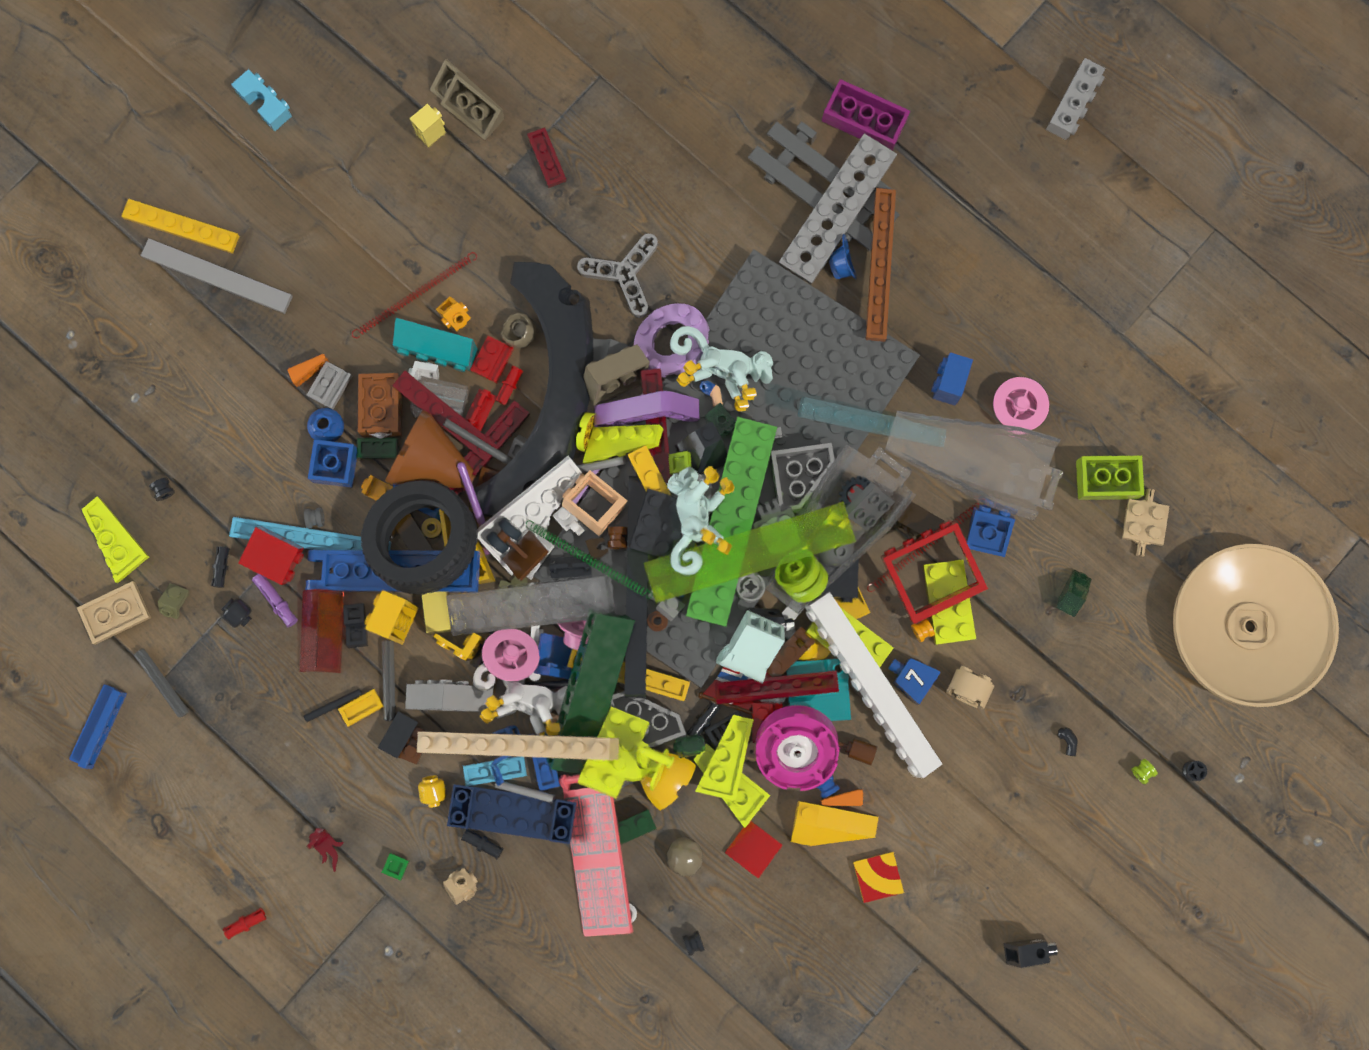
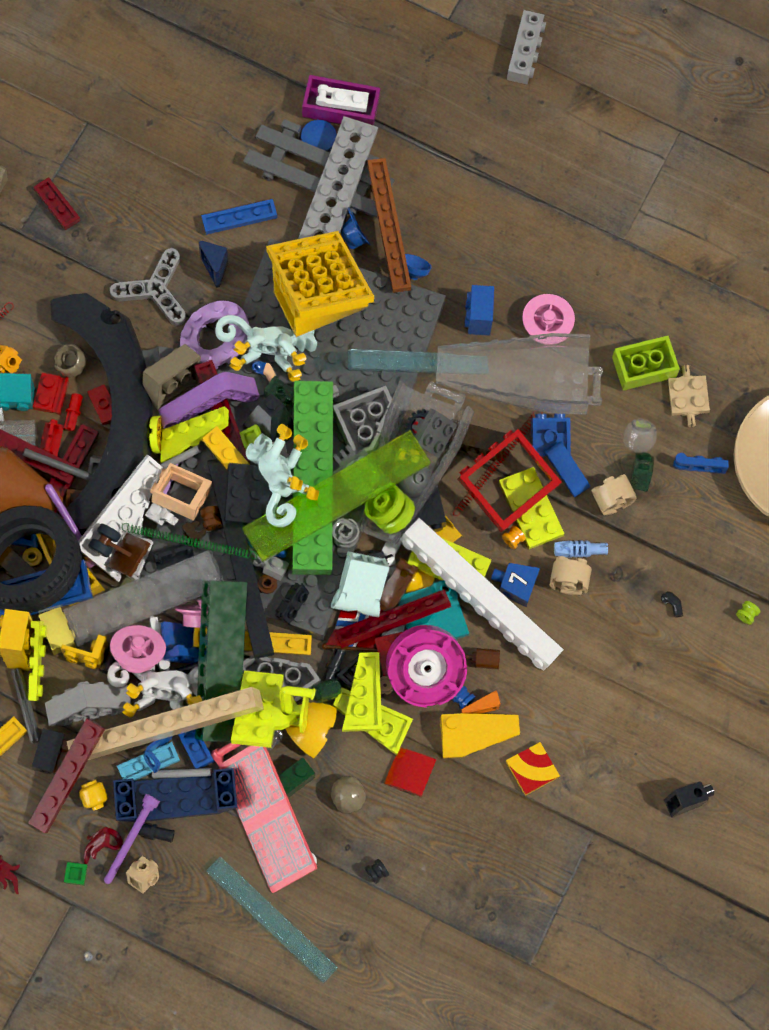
camera: 20 degrees left, 10 degrees down
(409, 767) = (66, 775): none -> dark red plate
(417, 612) = (36, 643): none -> neon yellow wing
(427, 841) = (100, 840): none -> dark red piece
(484, 817) = (149, 804): none -> medium lavender piece
(539, 380) = (102, 403): none -> red plate
(577, 964) = (272, 920): none -> clear light blue plate
(670, 654) = (297, 596): none -> black hinge
(692, 259) = (215, 260): none -> dark blue slope
(728, 215) = (239, 216): none -> blue plate
(789, 312) = (317, 281): none -> yellow wedge
(834, 146) = (319, 134): none -> blue tile
(867, 114) = (342, 98): none -> white plate
(898, 314) = (417, 266): none -> blue piece
(987, 659) = (579, 548): none -> light blue hinge
(997, 572) = (567, 469): none -> blue beam
(1039, 612) = (614, 494): none -> tan brick
(1083, 553) = (640, 435): none -> clear hair
(1137, 599) = (700, 464): none -> blue plate

